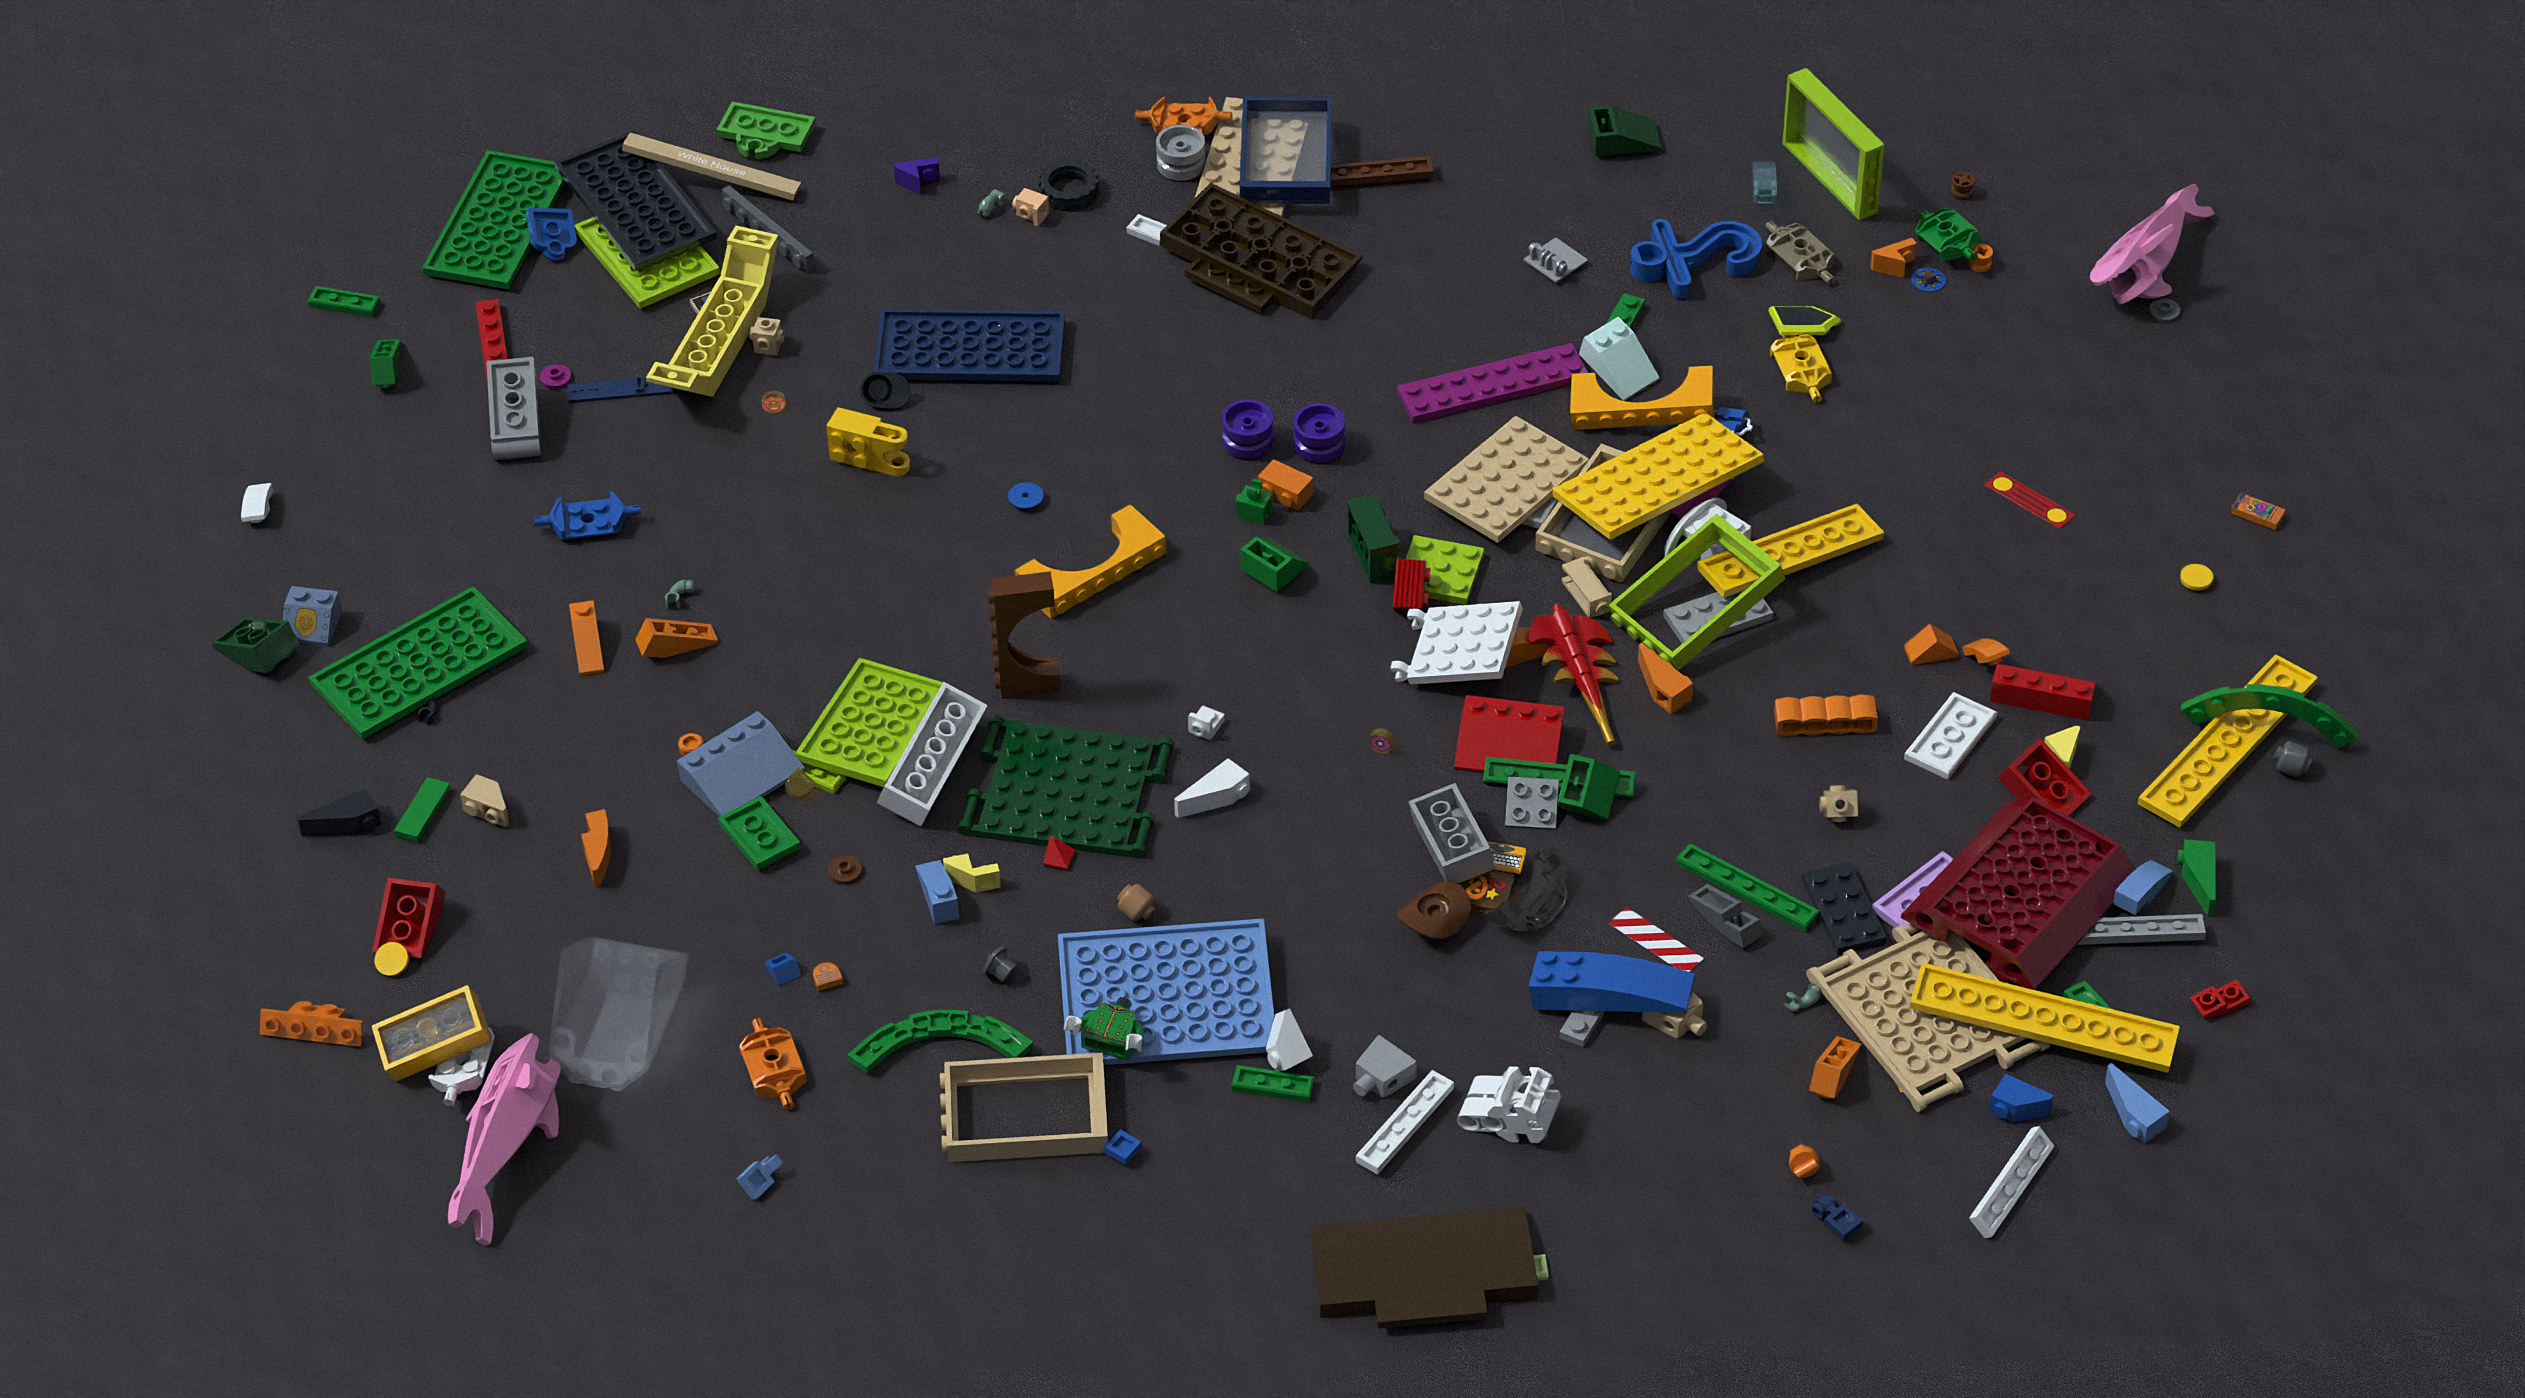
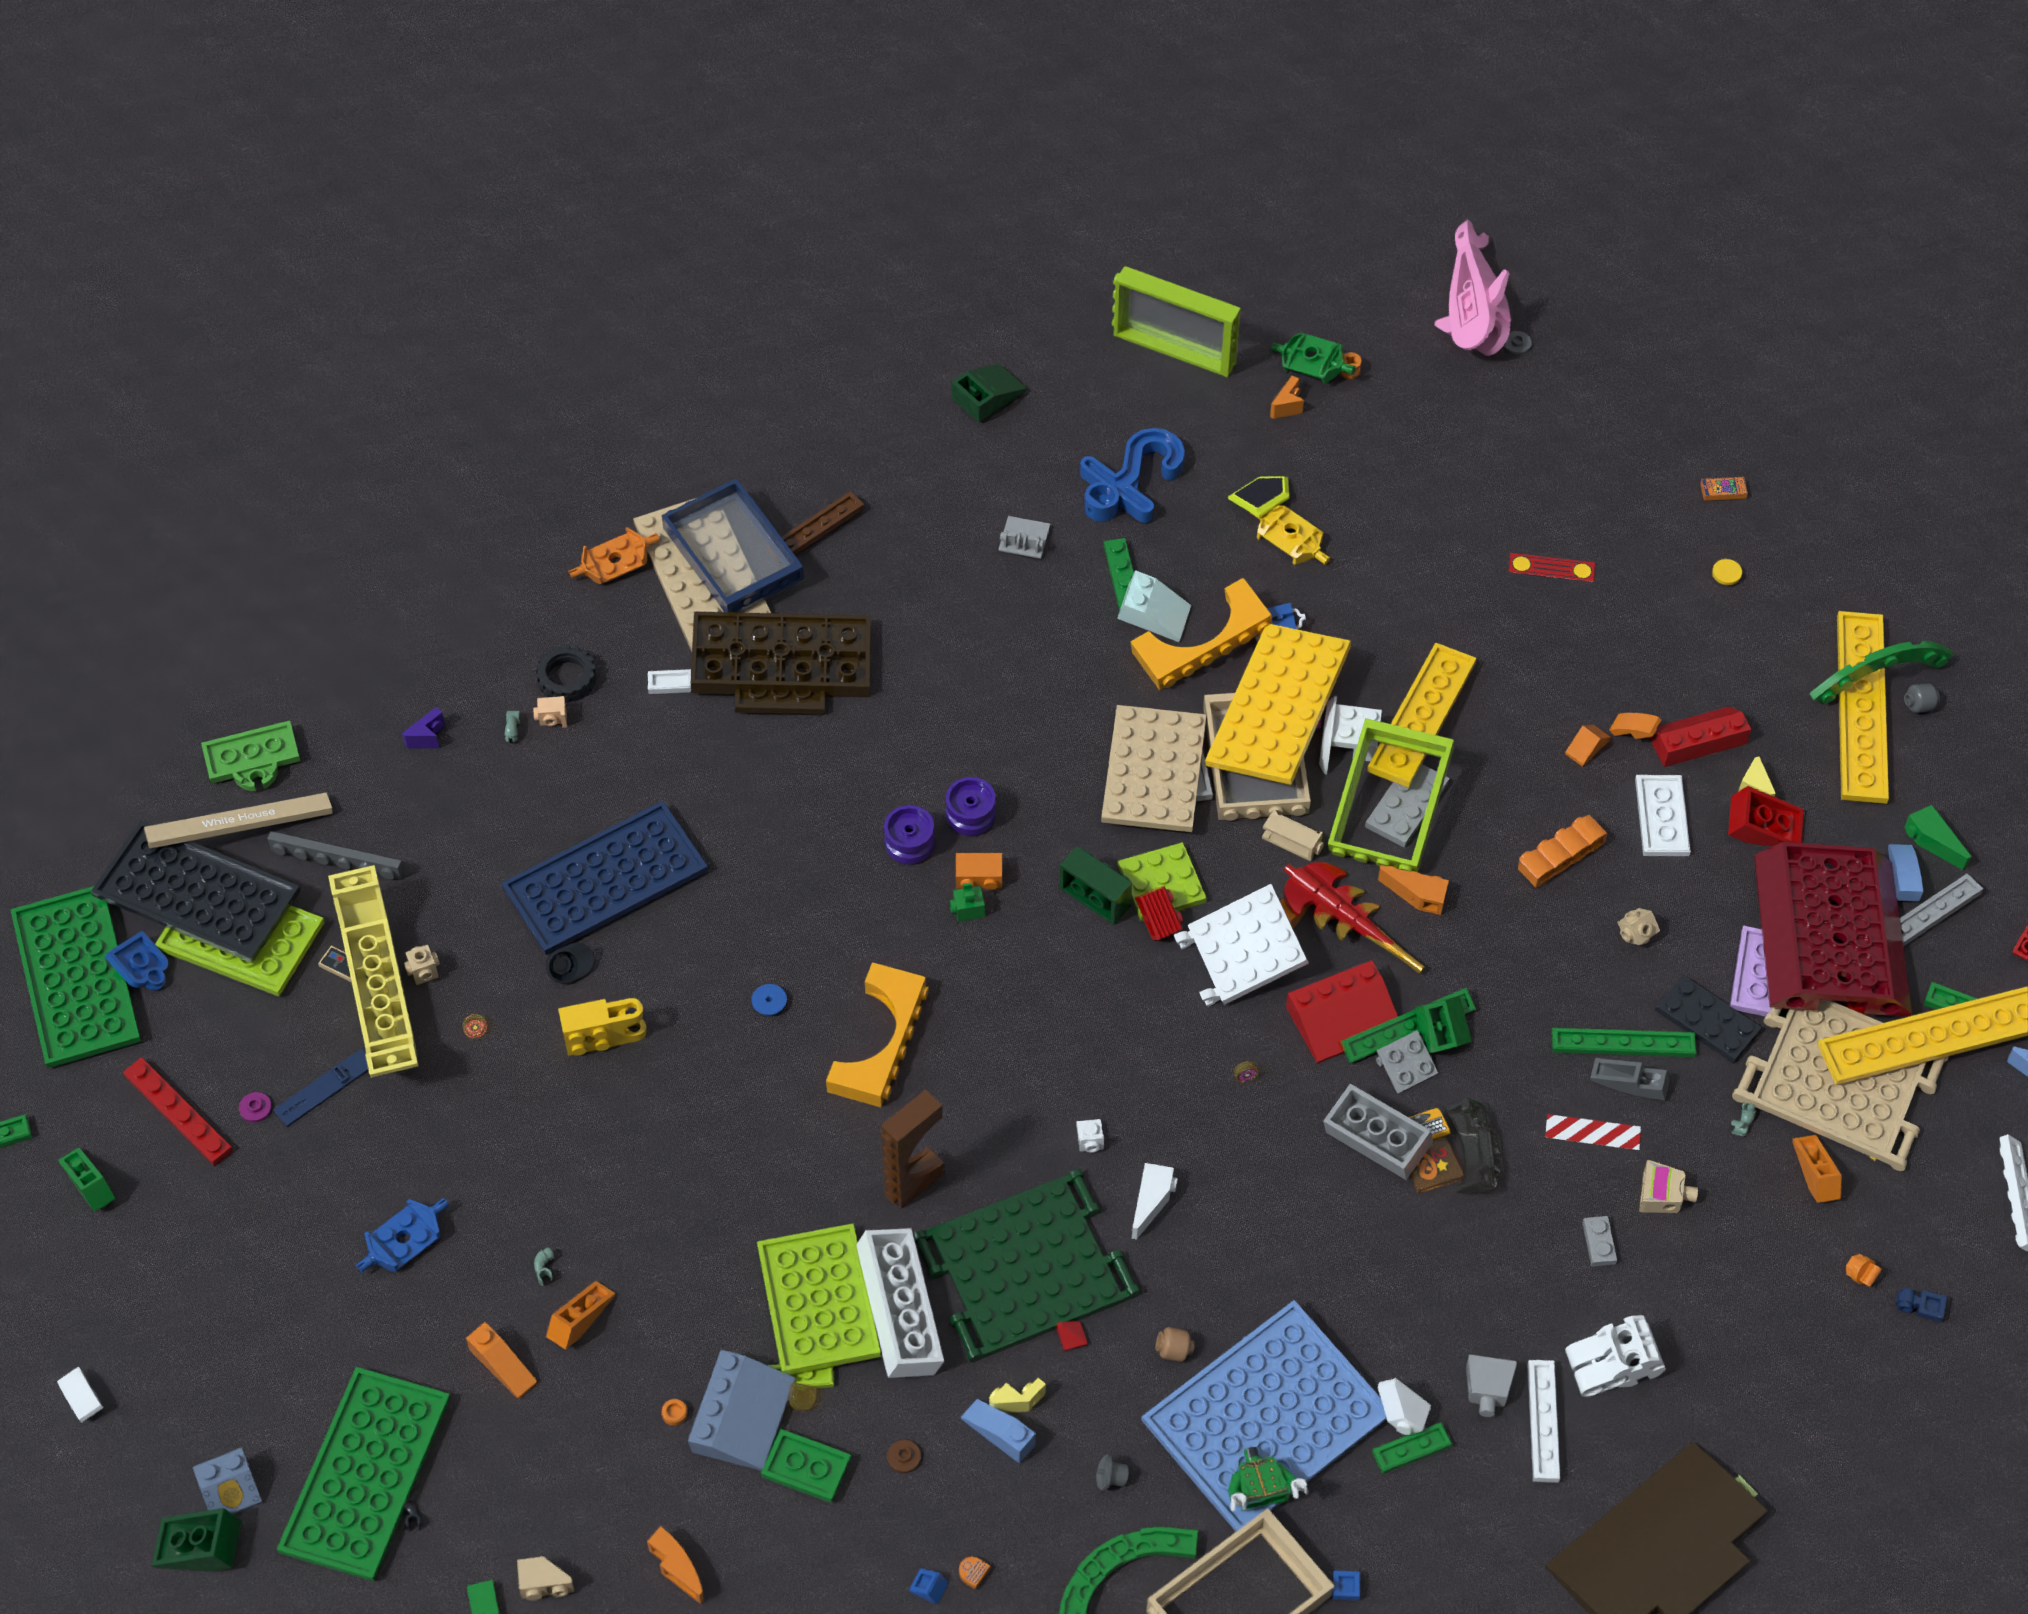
camera: 35 degrees left, 10 degrees up
(513, 408) = (268, 1183): light grey hinge -> none
(1180, 152) = (641, 593): light grey wheel -> none
(1270, 562) = (1027, 952): green slope -> none
(1437, 911) = (1417, 1209): reddish brown hat -> none
(1490, 383) = (1064, 681): magenta plate -> none
(1607, 983) = (1605, 1199): blue slope -> none
(1764, 182) = (1132, 379): clear light blue slope -> none
(1807, 262) = (1223, 437): dark tan plate -> none
(1928, 279) = (1322, 405): piece -> none
(1962, 185) = (1285, 306): reddish brown wheel -> none
(2019, 1101) = (1967, 1117): blue slope -> none

